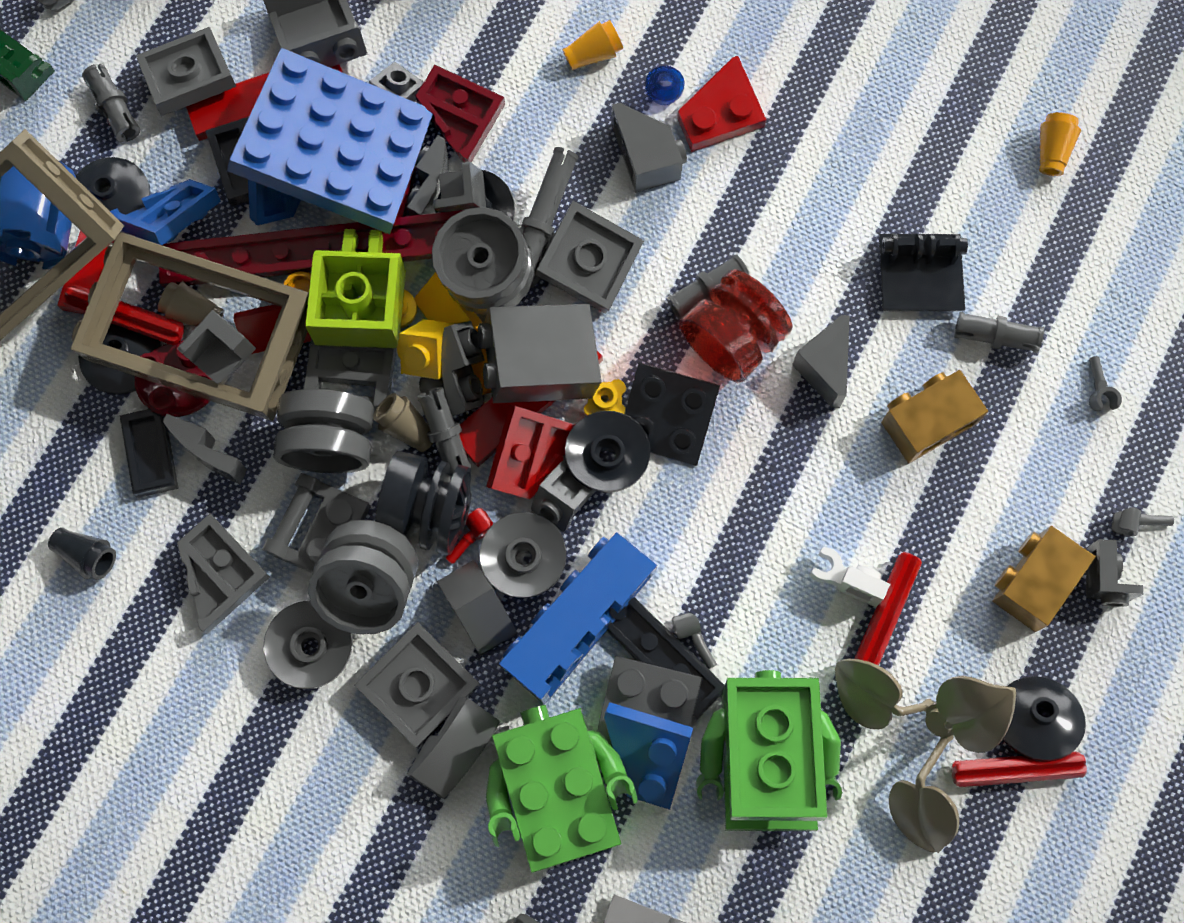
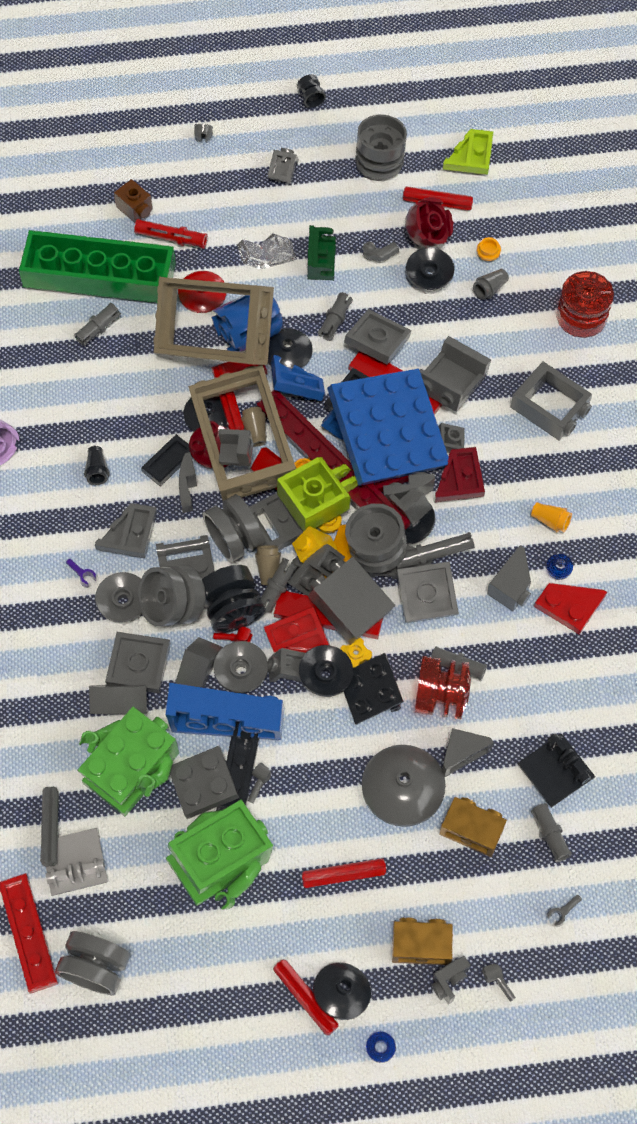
camera: 55 degrees right, 10 degrees down
(225, 676) = (81, 572): none -> dark purple hand
(649, 750) = (178, 794): blue wing -> none
(812, 488) = (398, 801): none -> dark grey dish
(859, 583) = (349, 846): white plate -> none
(963, 708) = (305, 931): dark tan plant -> none
(1151, 718) = (380, 1037): none -> clear blue plate

